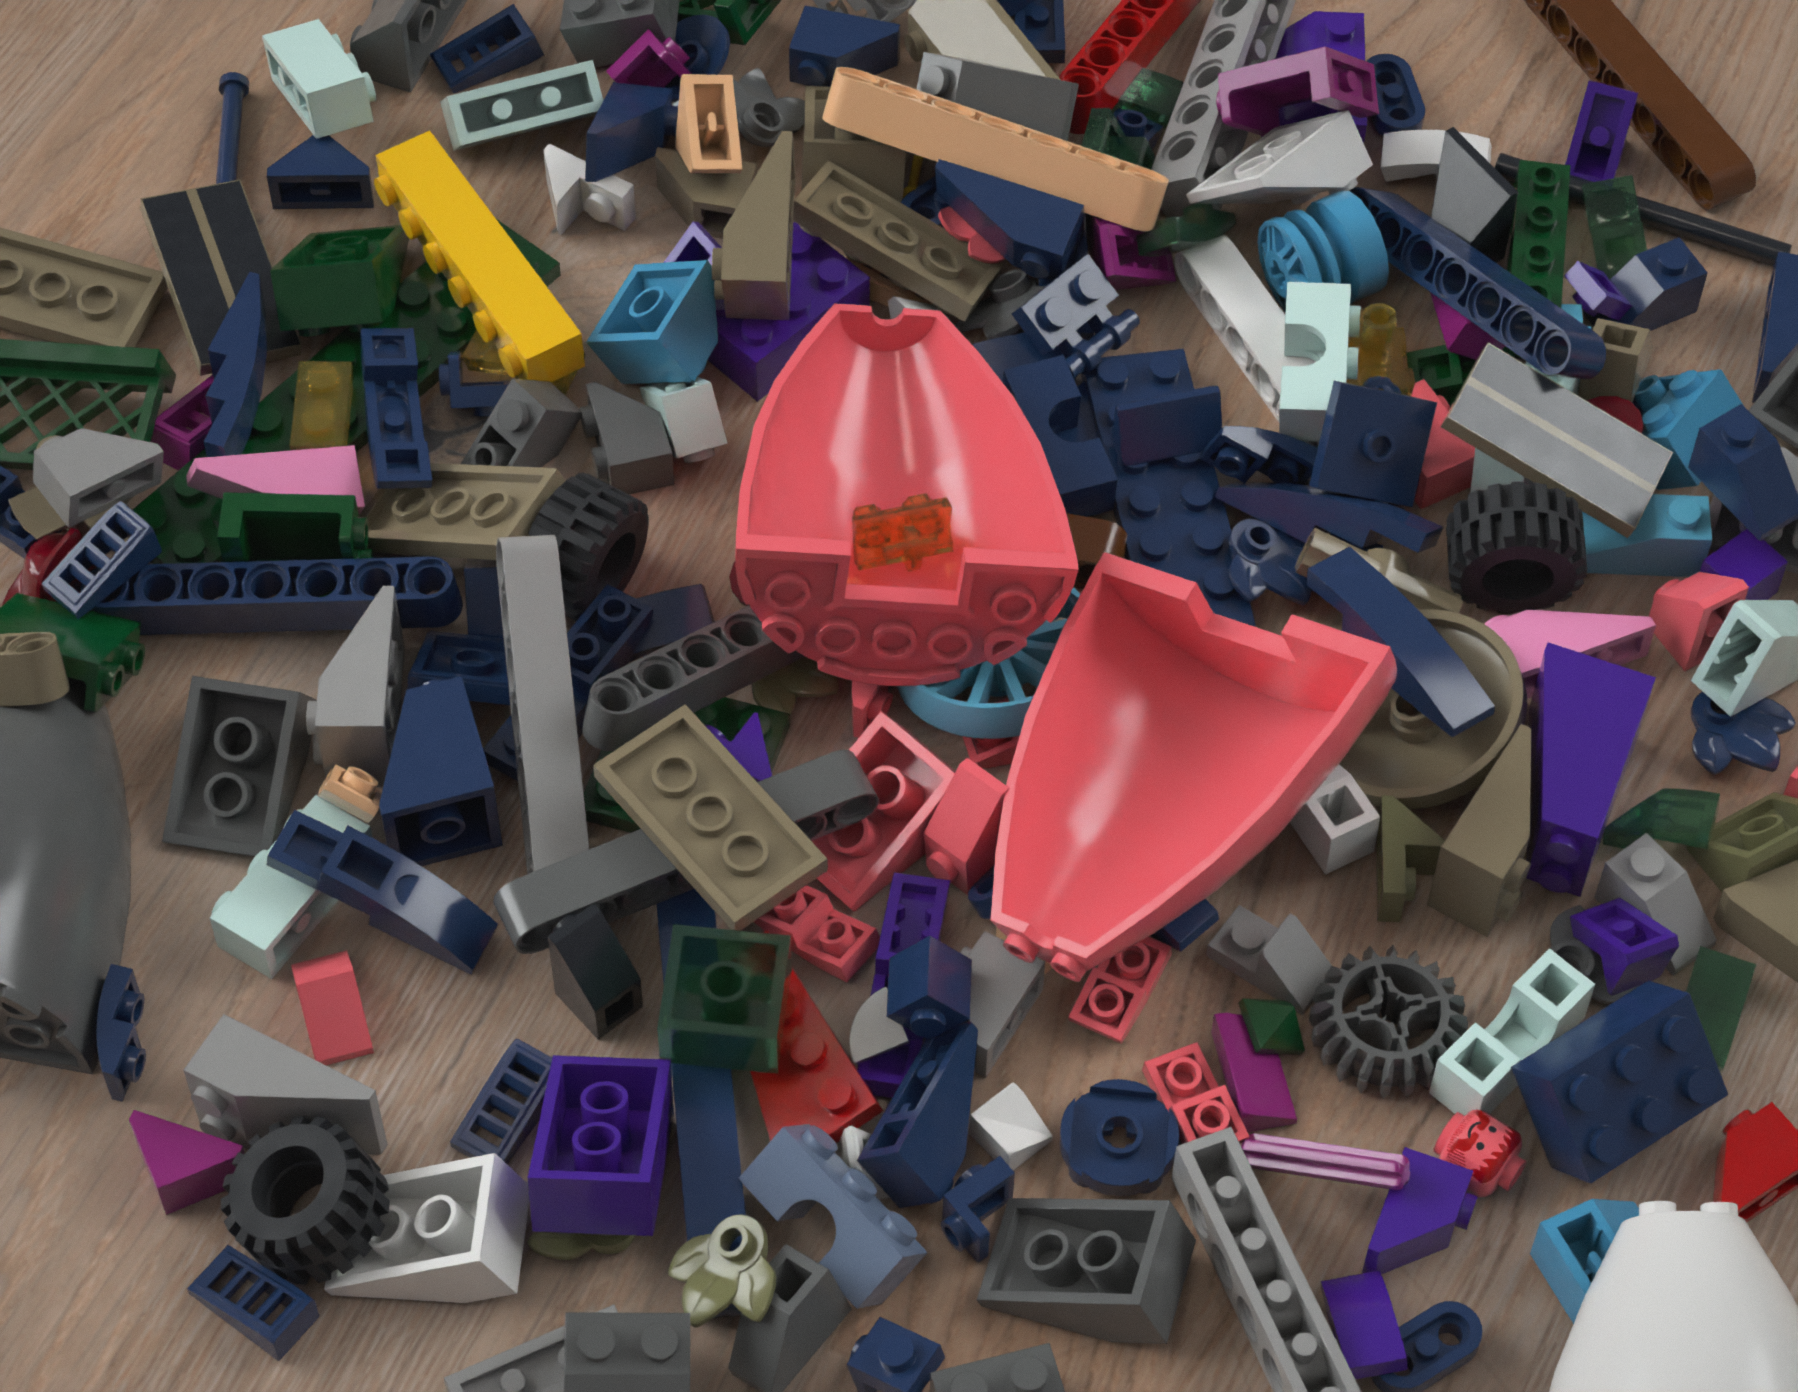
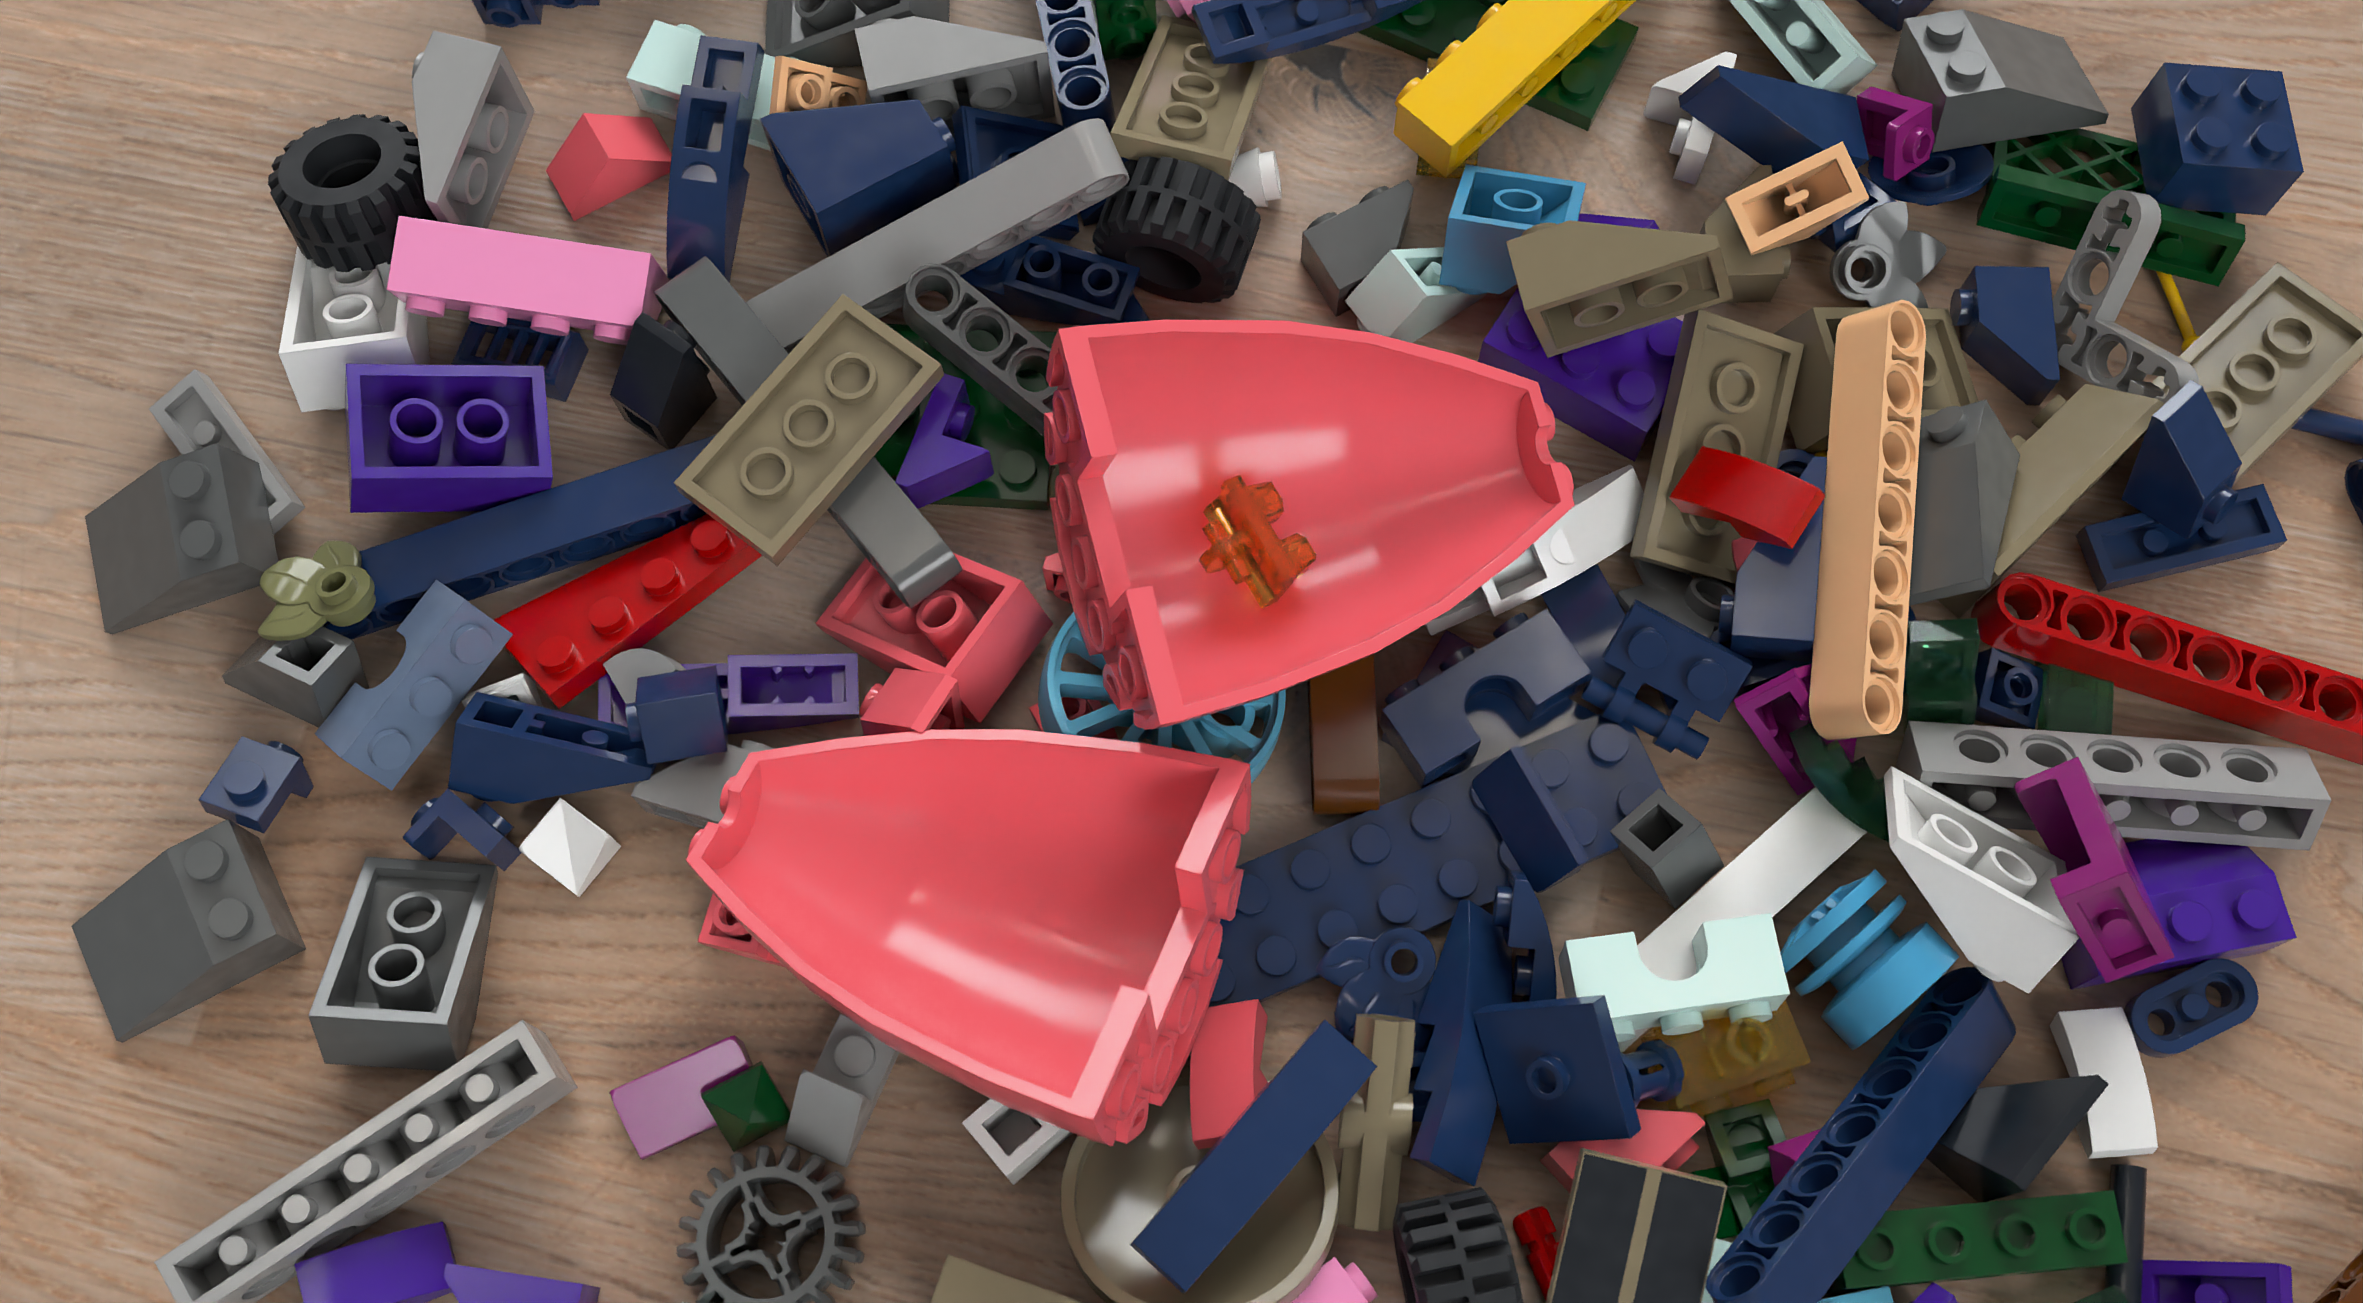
camera: 80 degrees right, 15 degrees up
(182, 1161) = (388, 71): magenta slope -> none
(273, 1338) = (241, 203): dark blue slope -> none
(464, 1052) = (523, 279): none -> bright pink slope
(480, 395) = (1379, 74): dark blue bracket -> none
(525, 426) = (1340, 142): dark grey slope -> none
(725, 998) = (610, 506): clear green brick -> none
(821, 933) = (785, 598): coral slope -> none
(953, 214) = (1749, 495): none -> red slope
(1111, 1169) = (607, 987): dark blue plate -> none
(1190, 1090) = (638, 1039): coral slope -> none
(1207, 353) = (1667, 848): none -> dark grey brick
(1327, 1161) = (558, 1198): axle -> none
(1402, 850) = (1016, 1210): olive slope -> none

